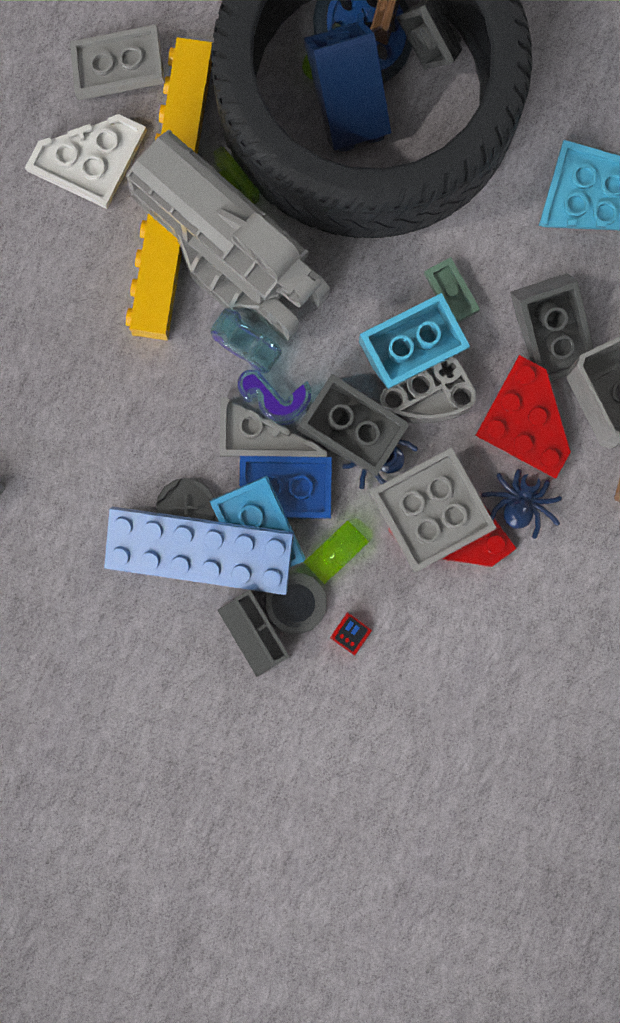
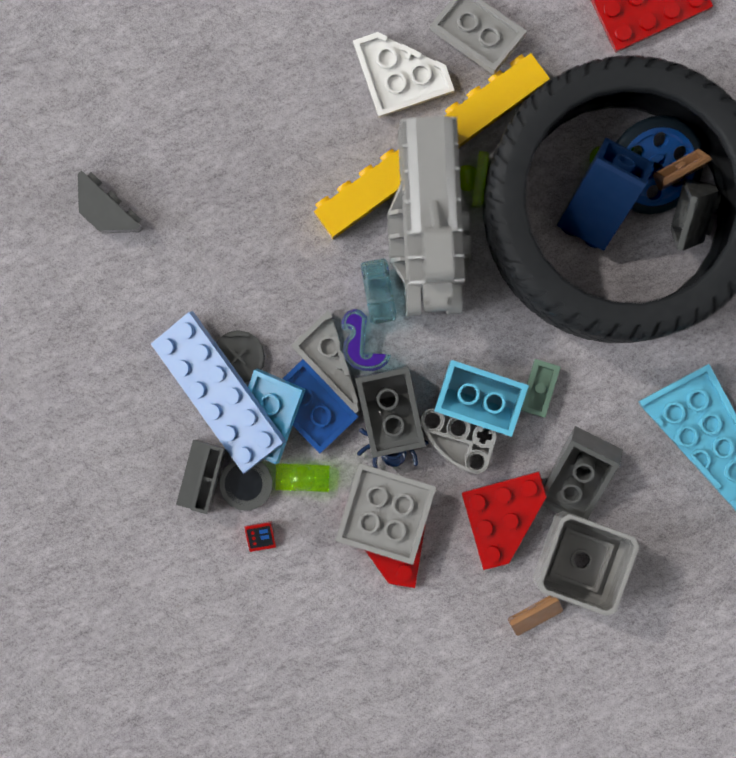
camera: 50 degrees right, 5 degrees up
(523, 502) = (447, 564): dark blue animal -> none

